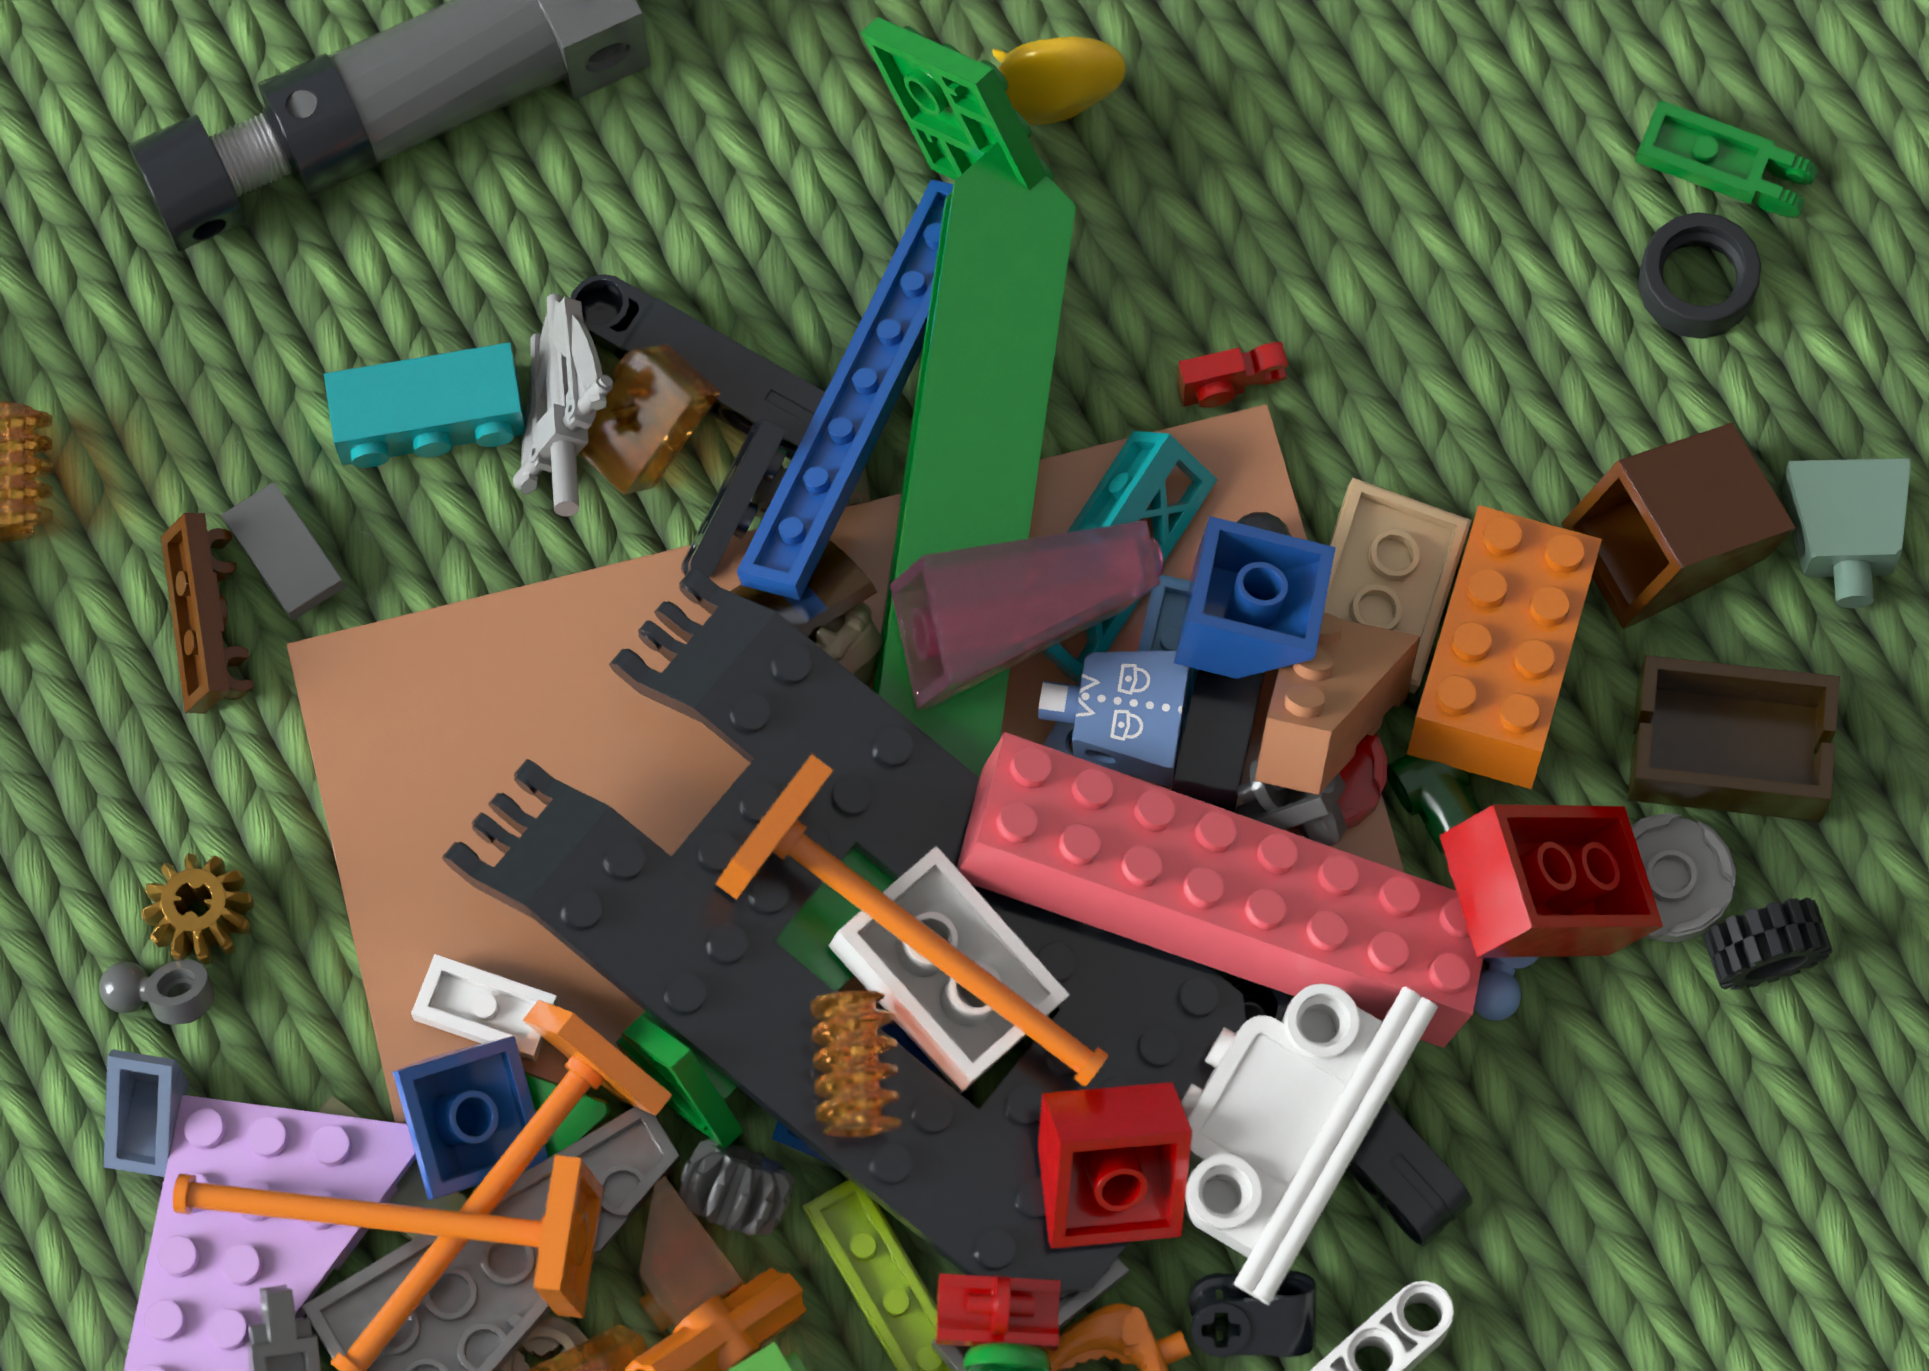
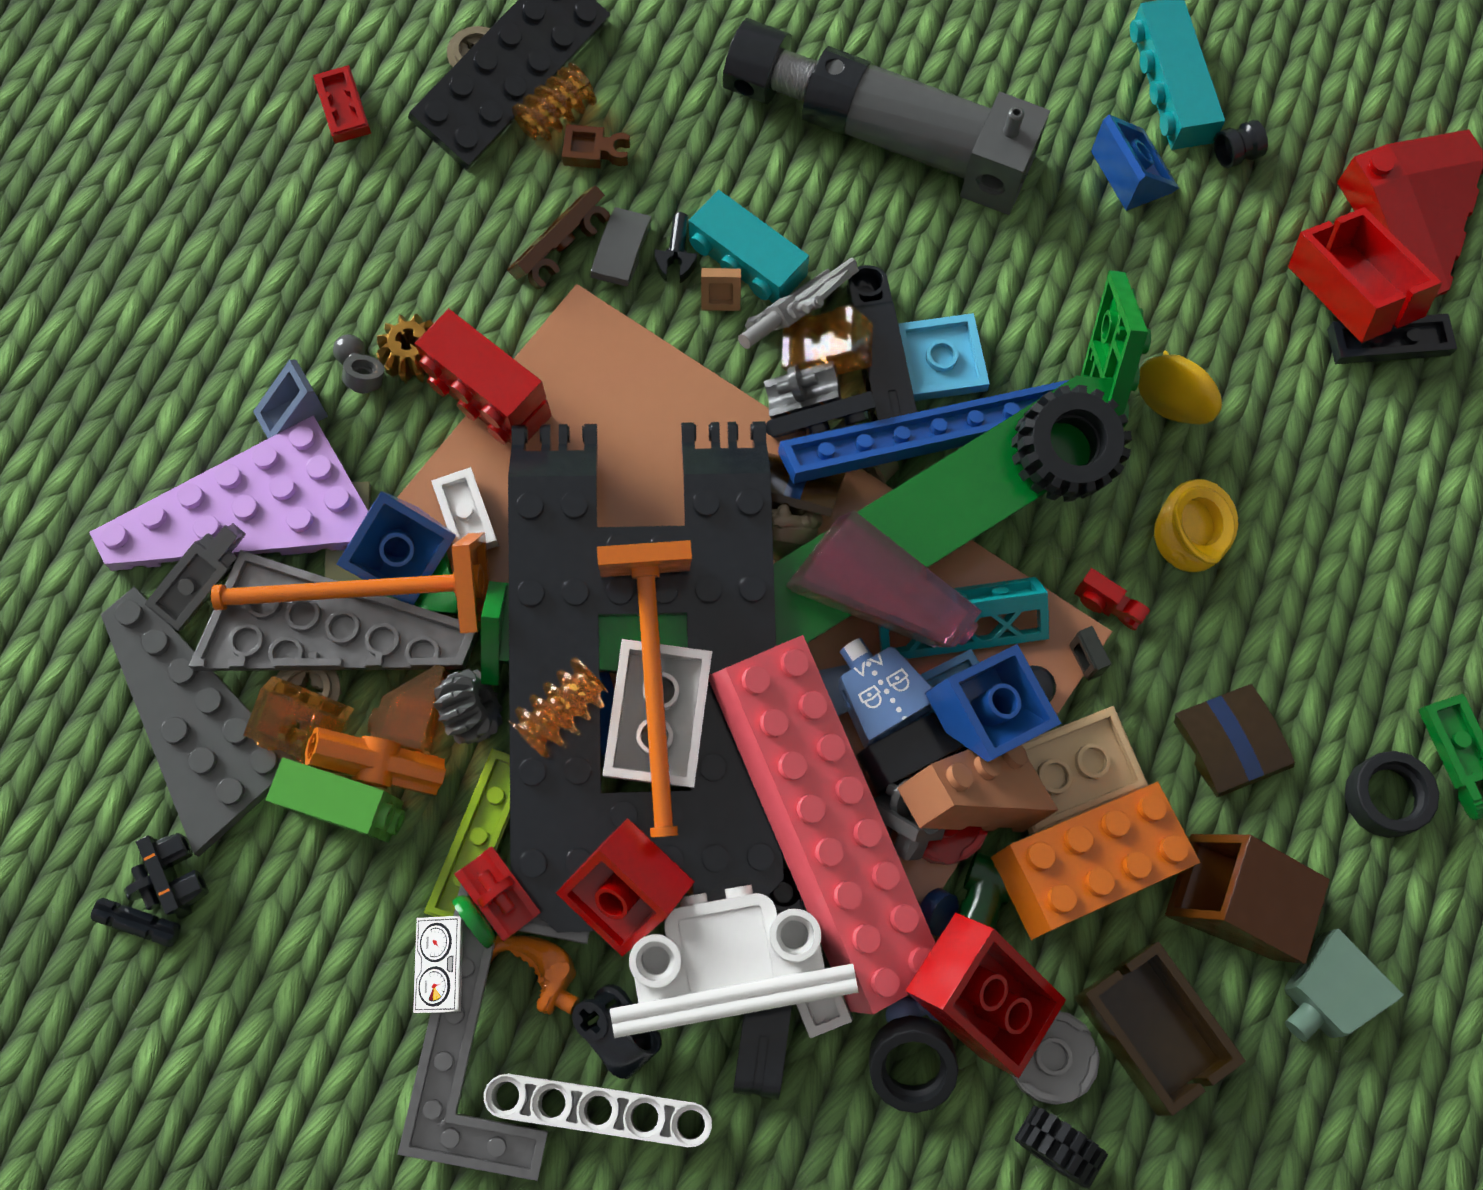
camera: 45 degrees right, 0 degrees up
(107, 480) = (588, 146): none -> reddish brown plate
(341, 849) = (481, 378): none -> red piece
(344, 489) = (677, 250): none -> black bar
(452, 480) = (720, 289): none -> medium nougat plate
(563, 1236) = (359, 638): orange tile -> none
(678, 495) = (802, 389): none -> dark grey hips
(773, 297) = (944, 357): none -> medium azure plate
(1064, 221) = (1099, 425): none -> black tyre
(1227, 204) = (1196, 525): none -> yellow piece
(1274, 450) = (1090, 653): none -> pearl dark grey tile
(1416, 856) = (938, 909): none -> dark blue tile
(1424, 1078) = (824, 1015): none -> white plate
(1500, 384) = (1234, 740): none -> dark brown slope
(1602, 1026) = (921, 1096): none -> black tyre

